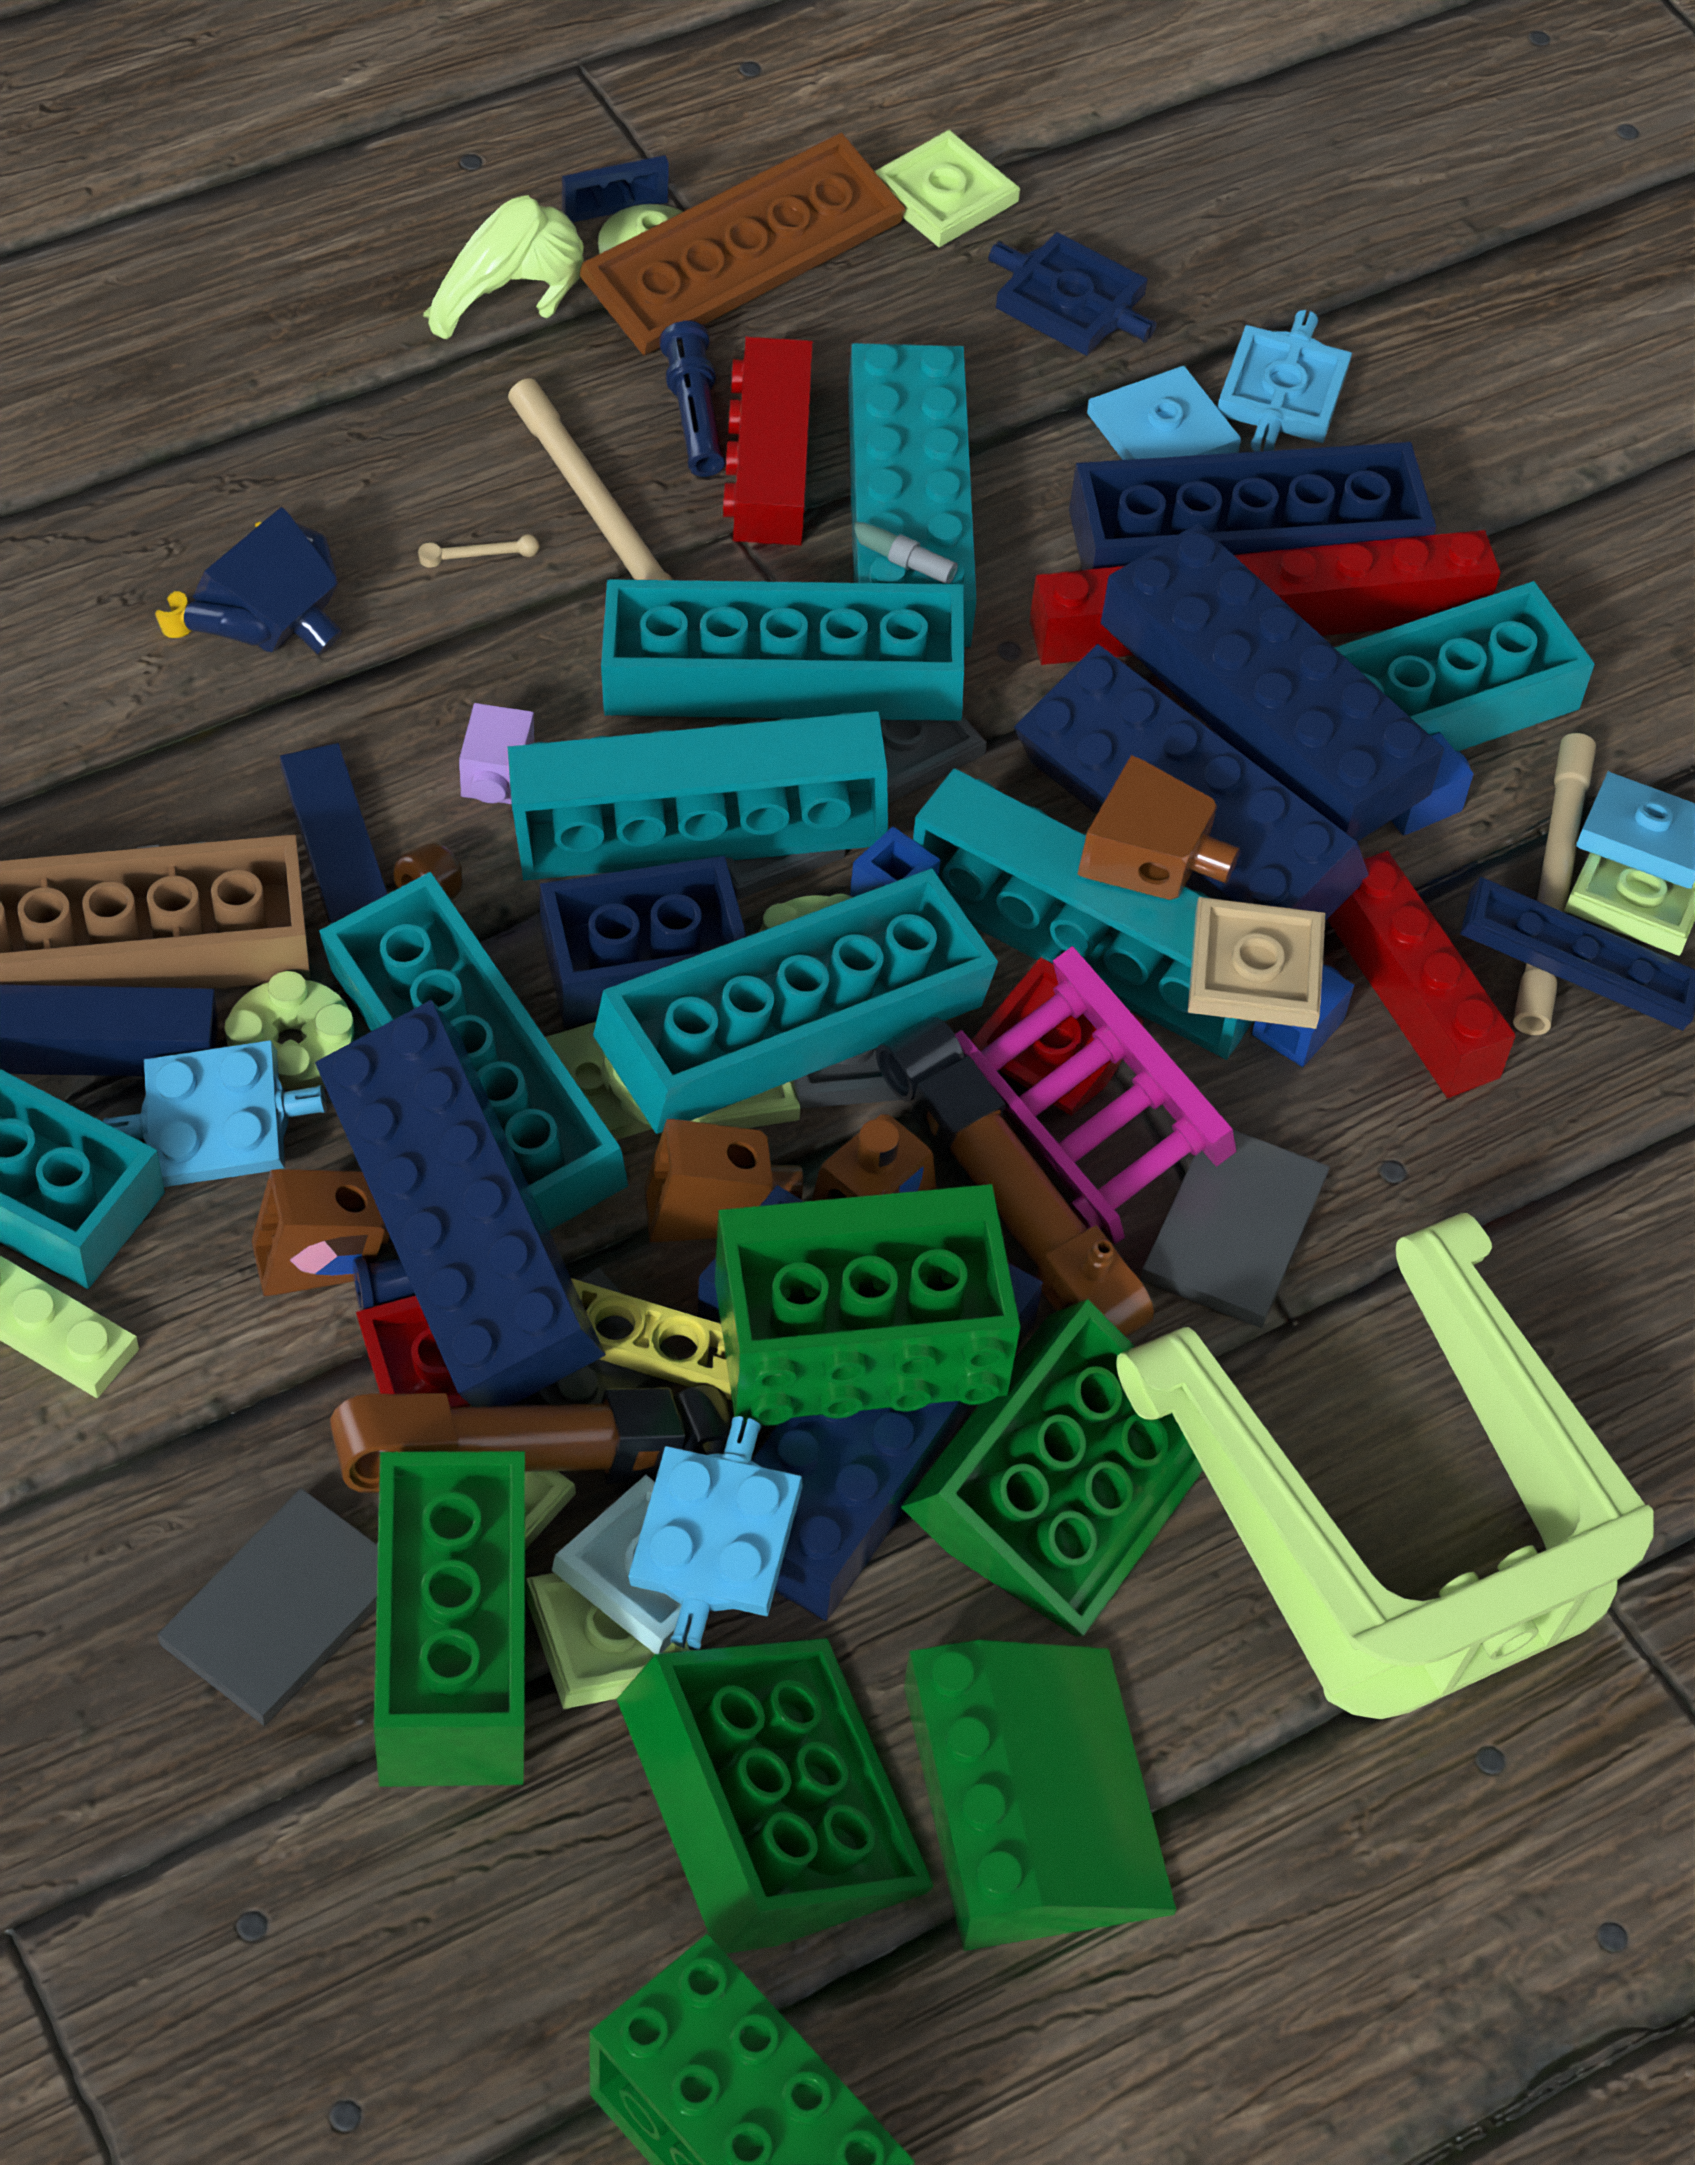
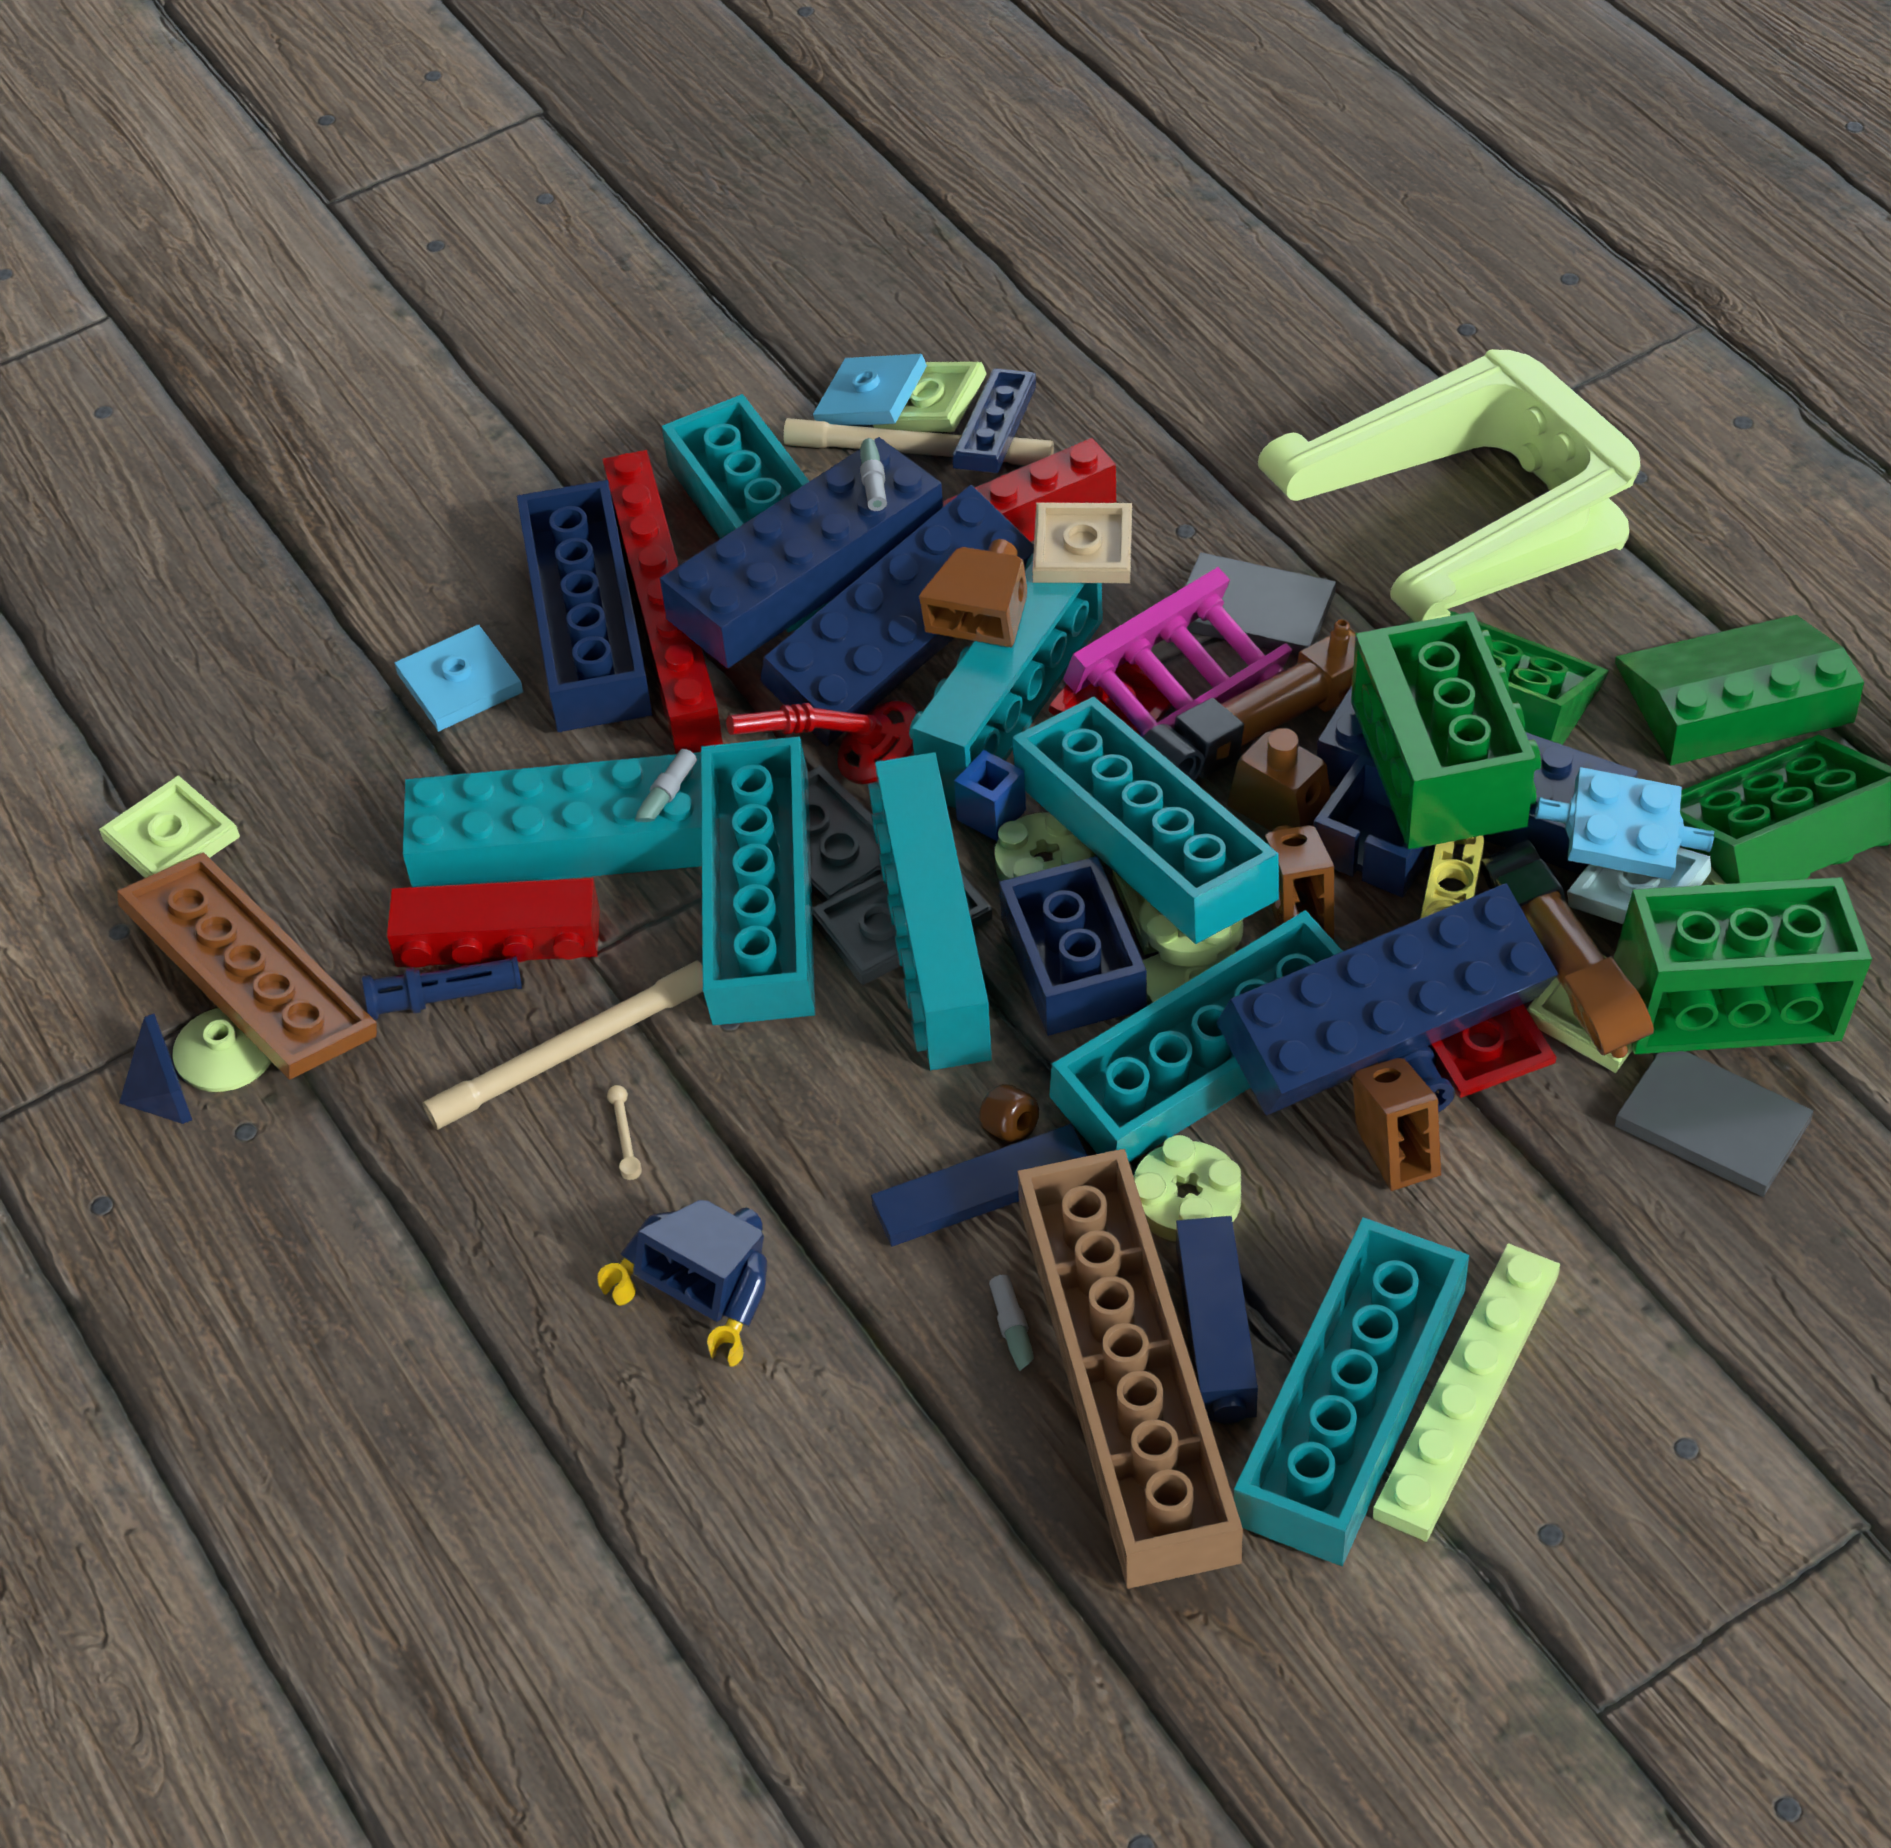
camera: 85 degrees left, 5 degrees down
(217, 1112) = (1286, 1219): medium azure plate -> none
(485, 751) = (877, 1076): lavender brick -> none
(511, 244) = (273, 1110): yellowish green hair -> none
(1009, 769) = (867, 734): none -> red dish
(1071, 293) = (307, 738): dark blue plate -> none
(1284, 383) = (414, 600): medium azure plate -> none
(1351, 721) = (872, 475): none -> light grey piece

